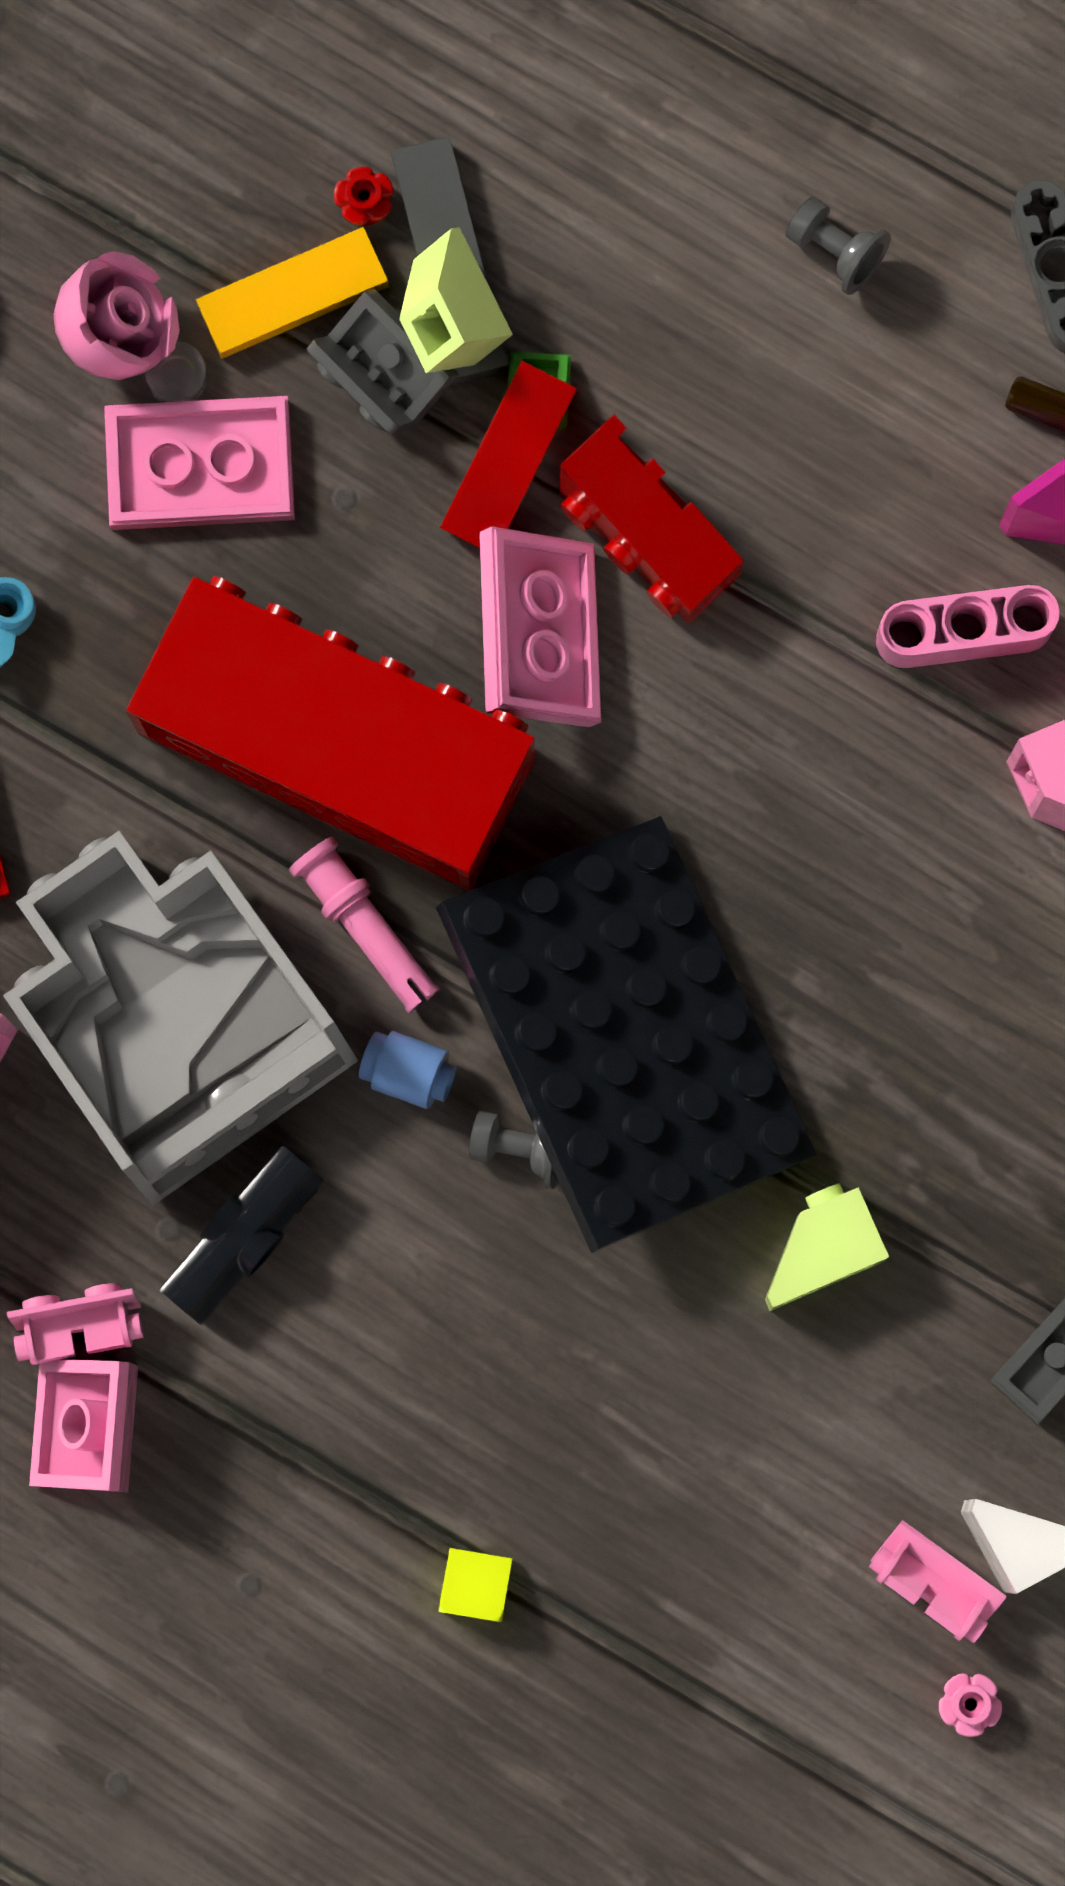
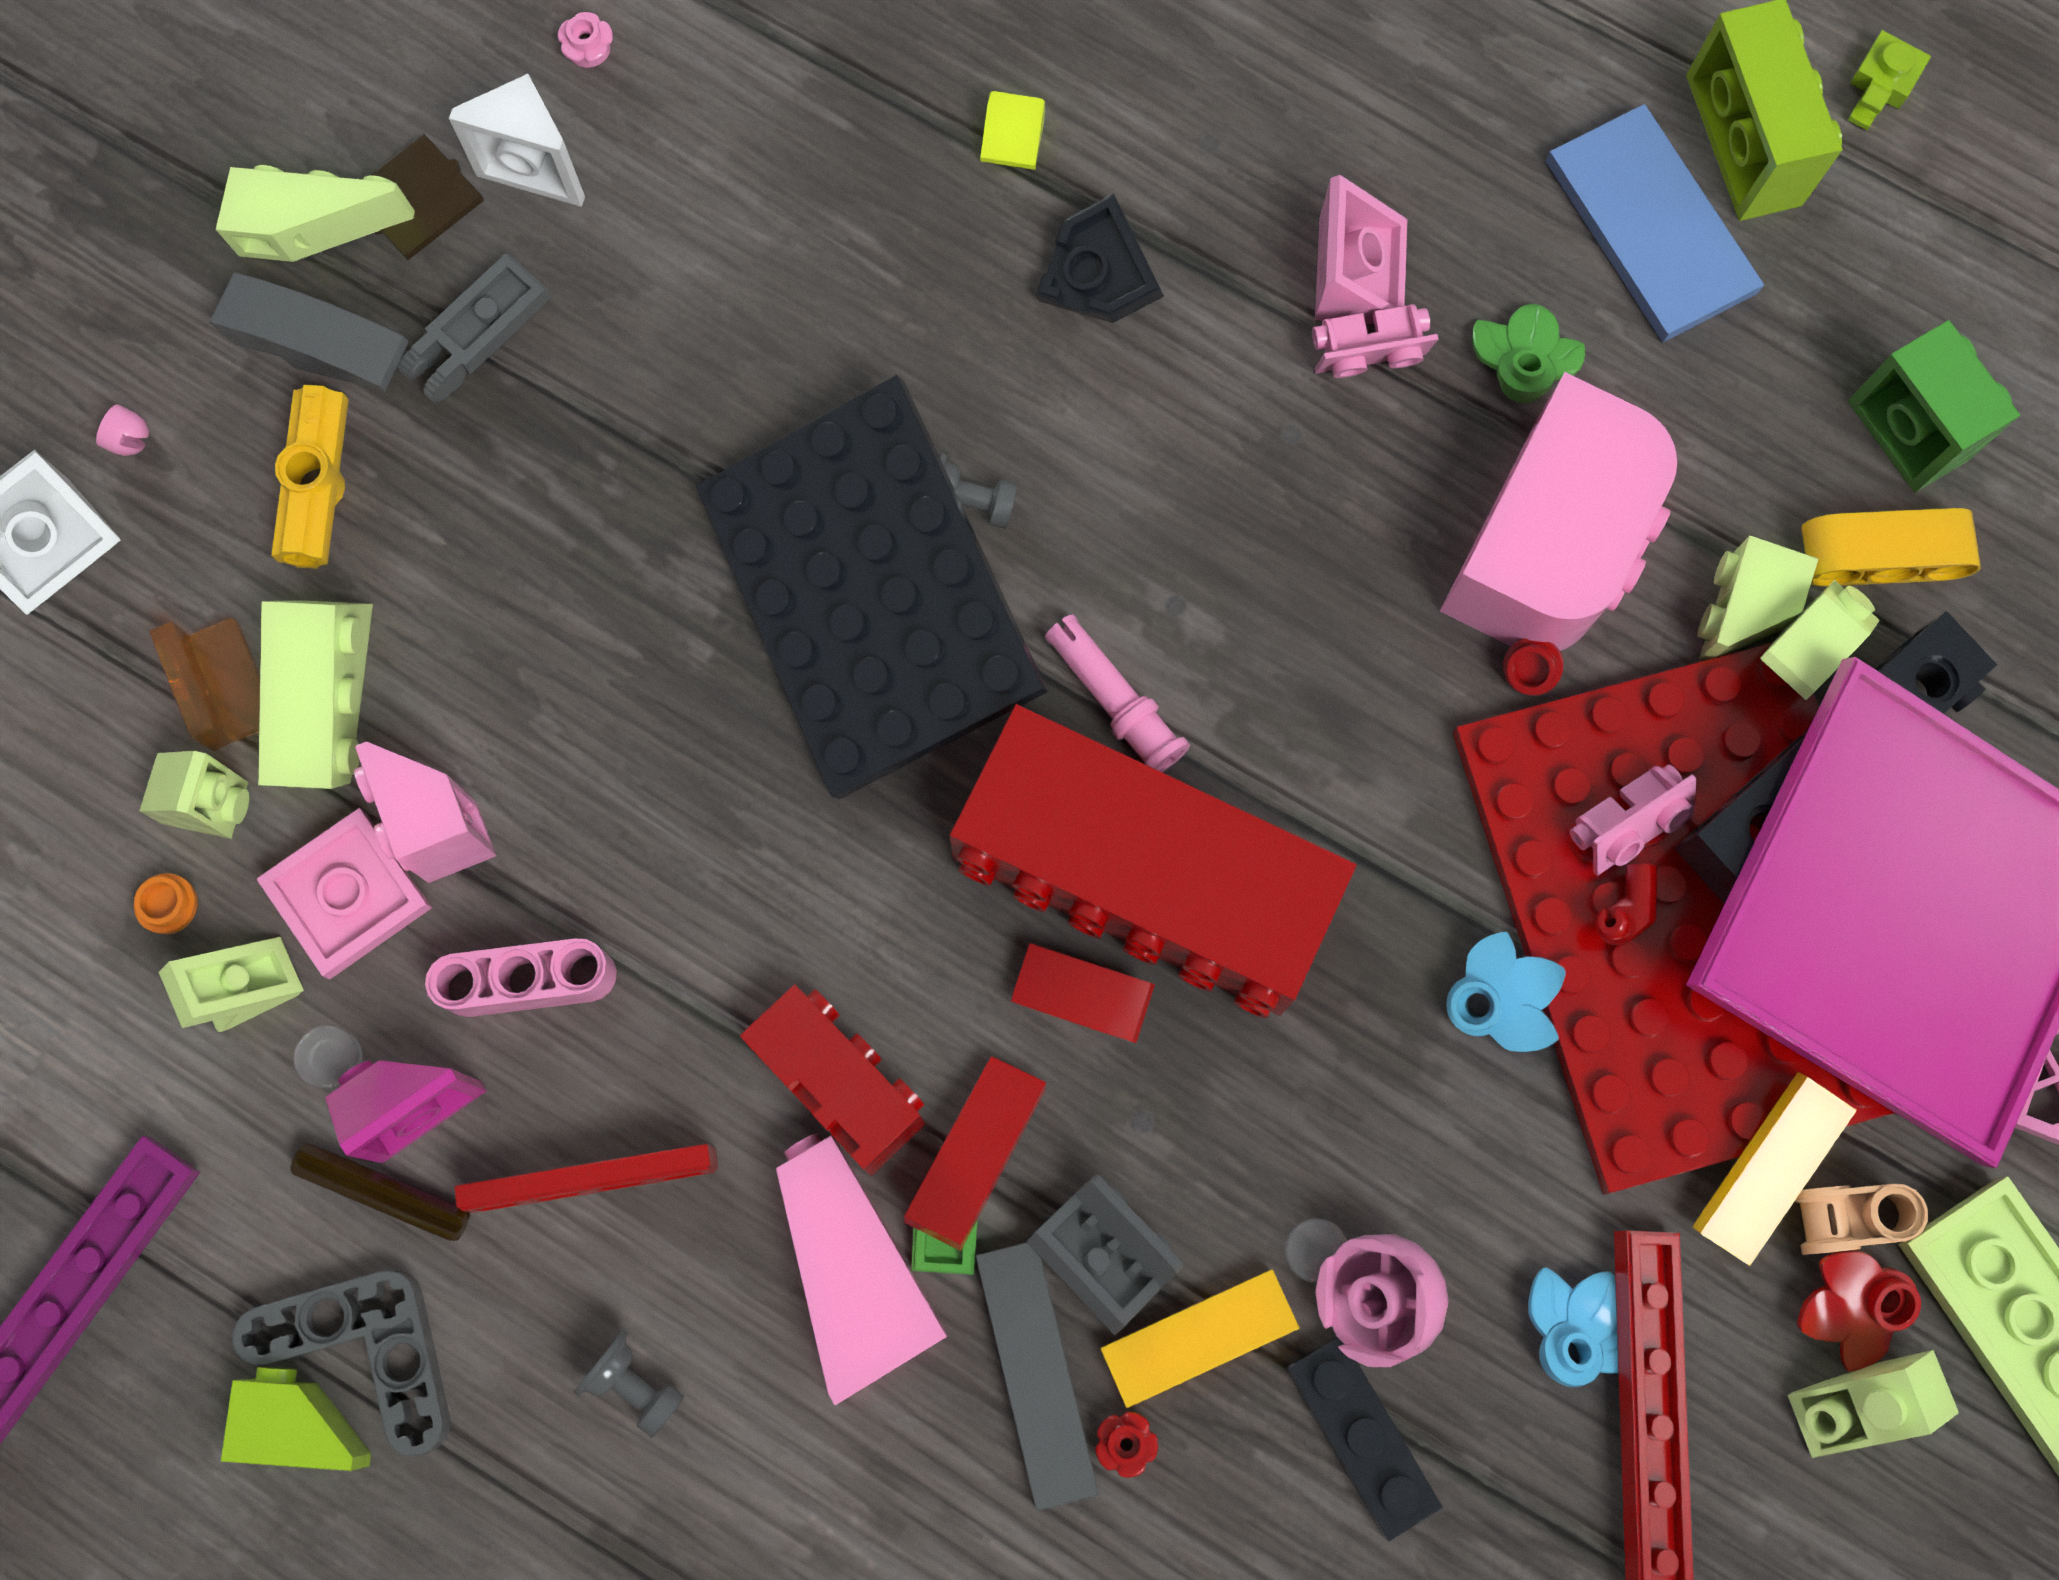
camera: 175 degrees right, 5 degrees down
(138, 203) = (1364, 1439): none -> black plate
(169, 1011) = (1306, 608): light grey panel -> none
(199, 463) = (1289, 1157): bright pink tile -> none
(242, 1235) = (1224, 417): black piece -> none
(376, 1415) = (1098, 266): none -> black plate
(402, 613) = (1082, 993): none -> red slope
(407, 1069) = (1074, 562): medium blue brick -> none
(451, 307) = (1035, 1308): yellowish green slope -> none
(540, 627) = (945, 972): bright pink tile -> none
(624, 343) = (854, 1278): none -> bright pink slope
(826, 1246) = (693, 400): yellowish green slope -> none
(889, 432) = (586, 1179): none -> red tile
(922, 1569) = (627, 138): bright pink hinge -> none

